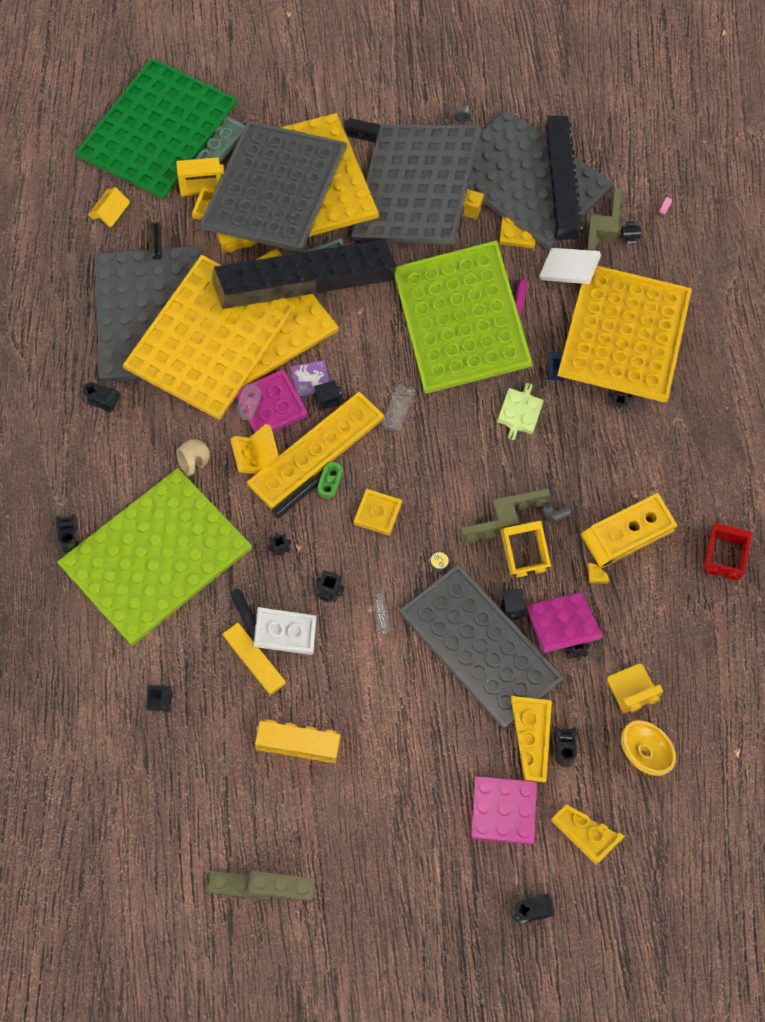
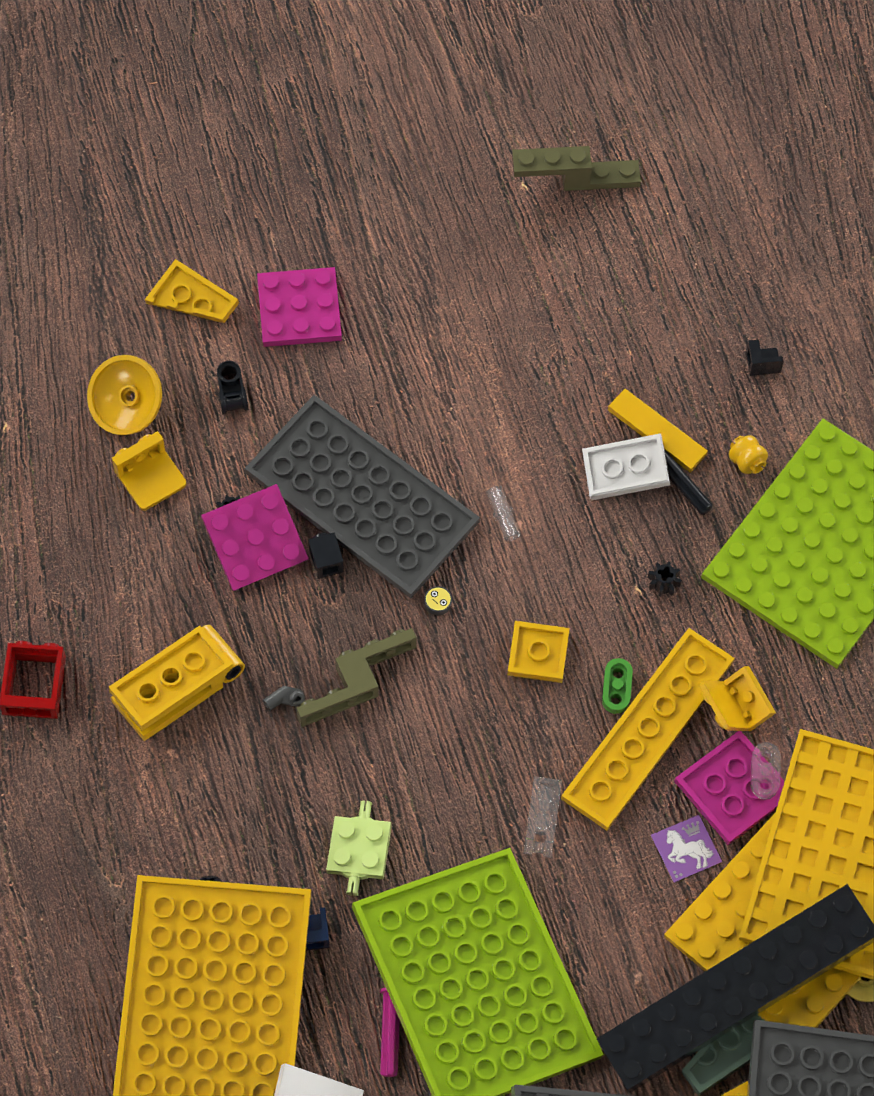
camera: 170 degrees right, 0 degrees up
(192, 453) = (823, 681): tan helmet -> none
(194, 622) = (748, 454): none -> yellow piece
(295, 497) = (660, 654): black axle -> none
(298, 741) = (573, 335): yellow brick -> none
(327, 395) = (653, 814): black brick -> none
(329, 586) = (581, 529): black brick -> none
(532, 730) = (276, 395): yellow wing -> none
(536, 908) = (246, 202): black piece -> none
(545, 561) = (326, 645): yellow window -> none
(596, 574) = (216, 619): yellow tile -> none

